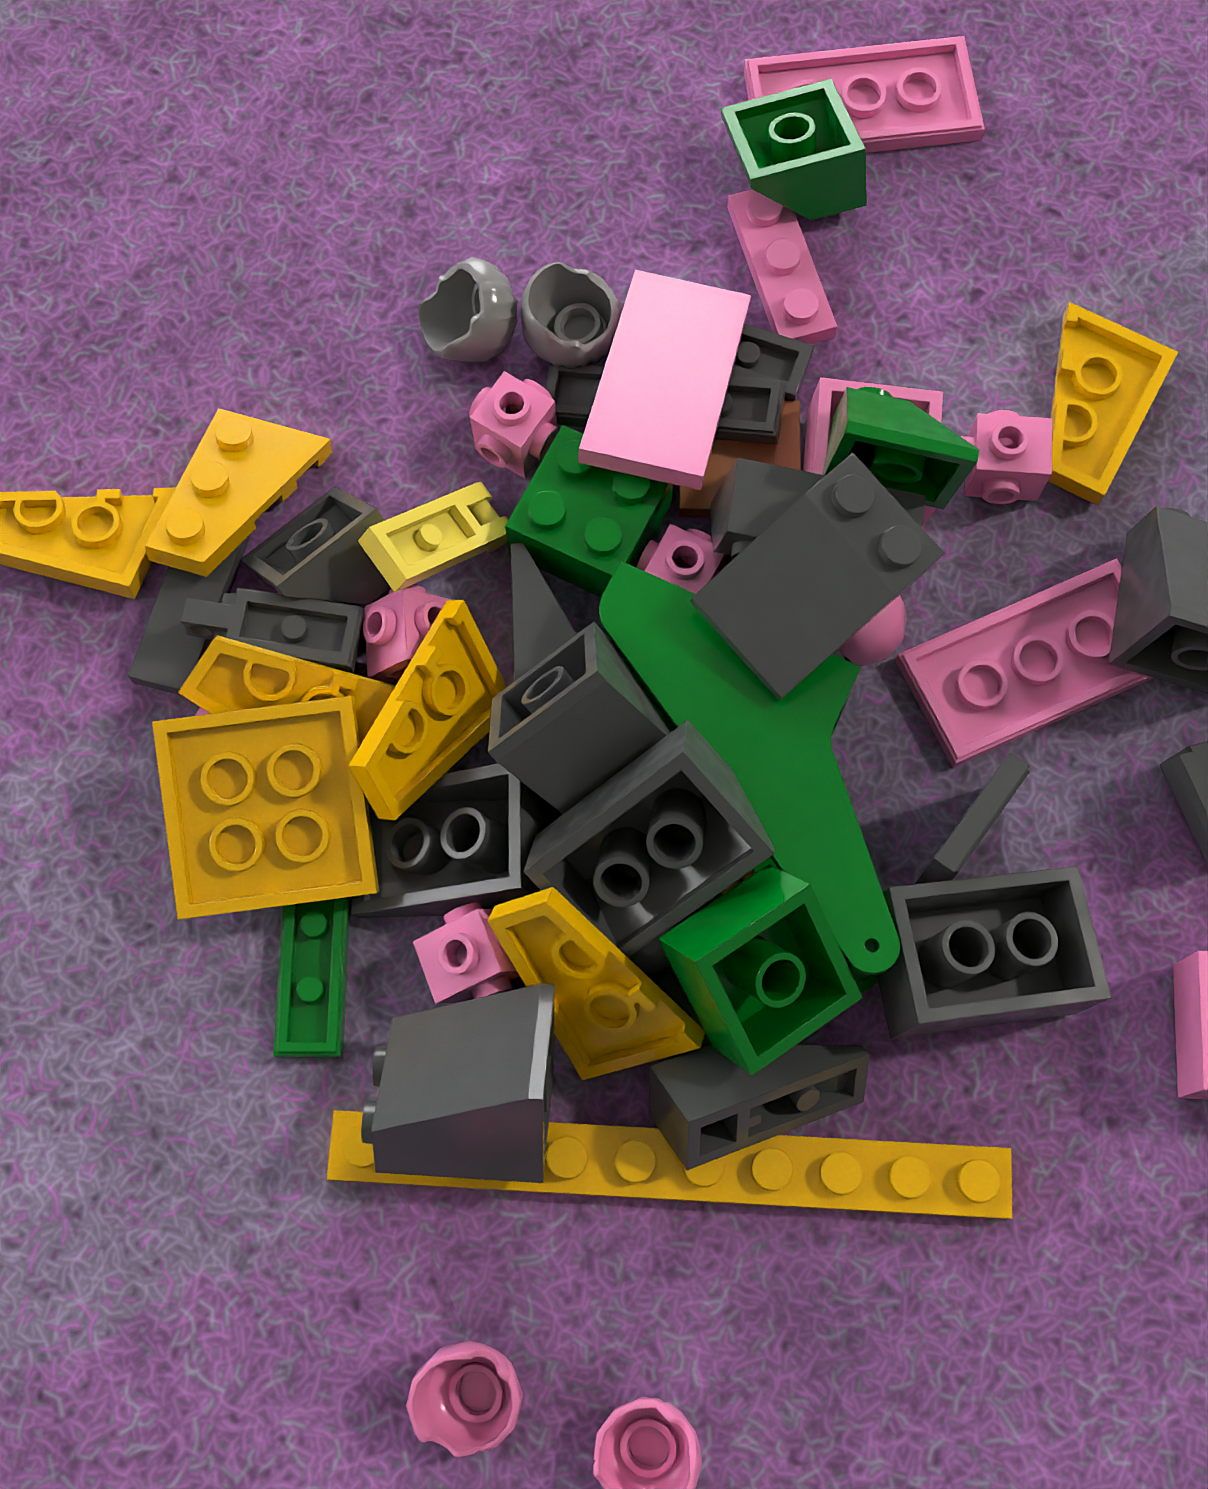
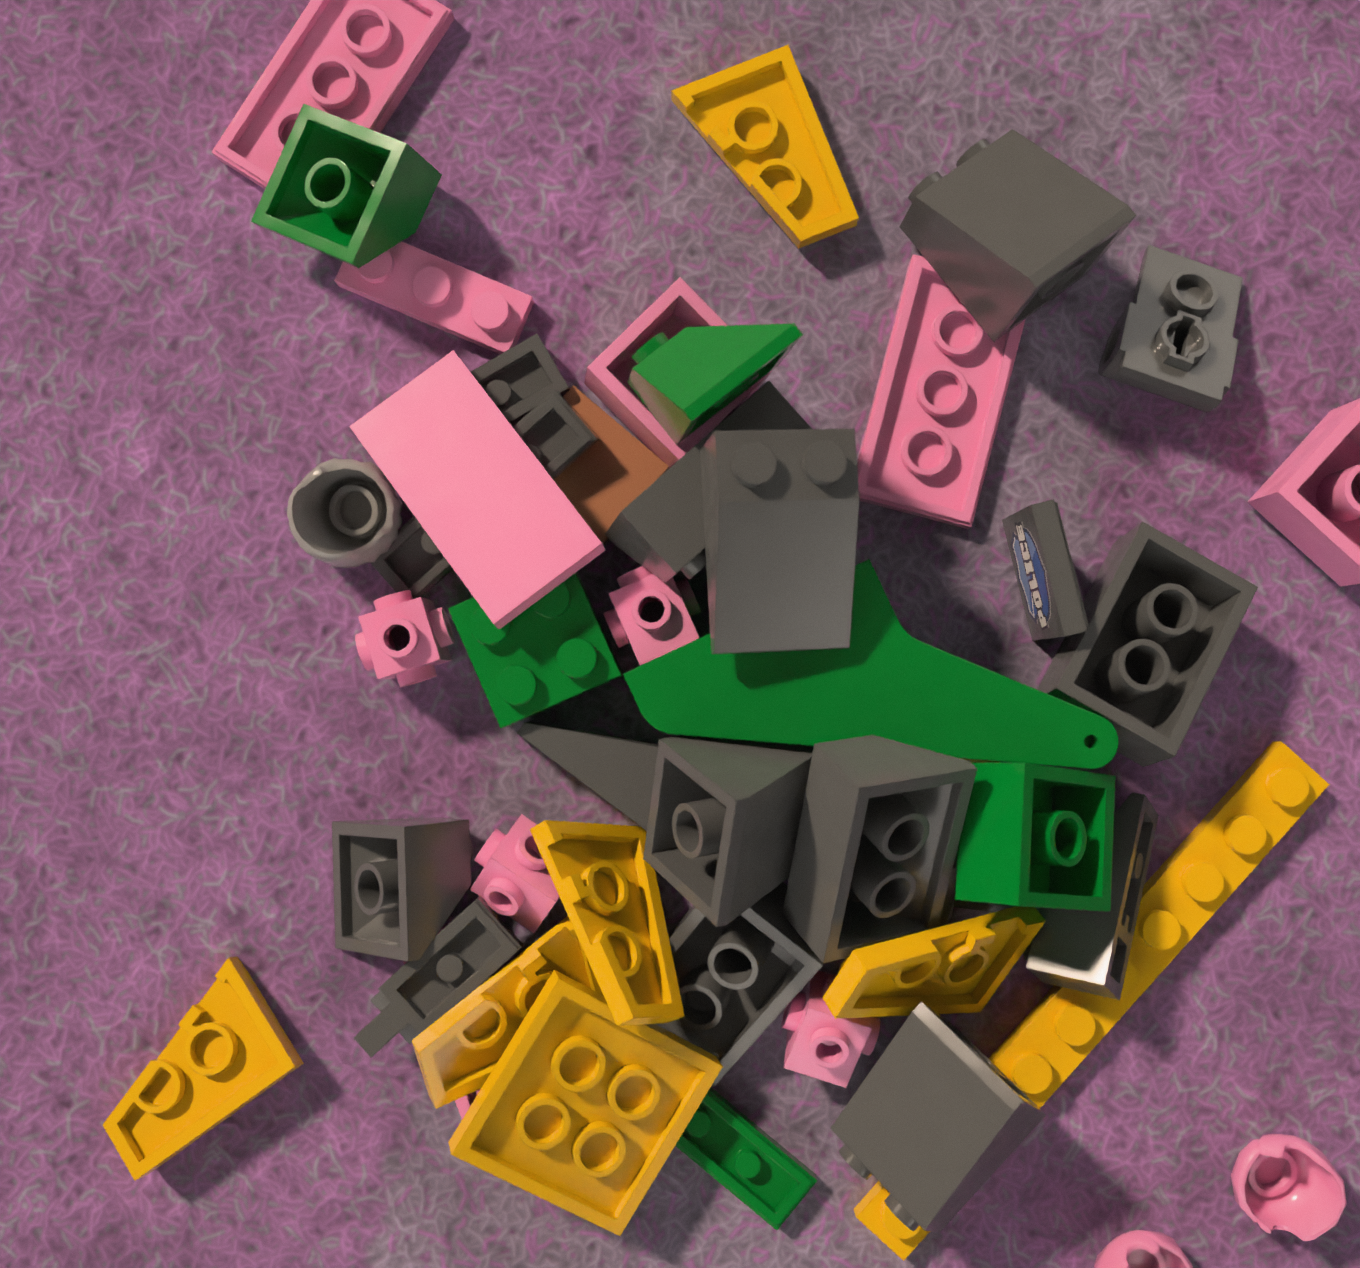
camera: 55 degrees left, 15 degrees up
(166, 650) = (334, 1011): dark grey tile -> none
(228, 486) = (267, 916): yellow wing -> none
(435, 536) = (463, 791): light yellow plate -> none
(469, 313) = (270, 594): light grey hair -> none
(1012, 457) = (764, 267): bright pink brick -> none

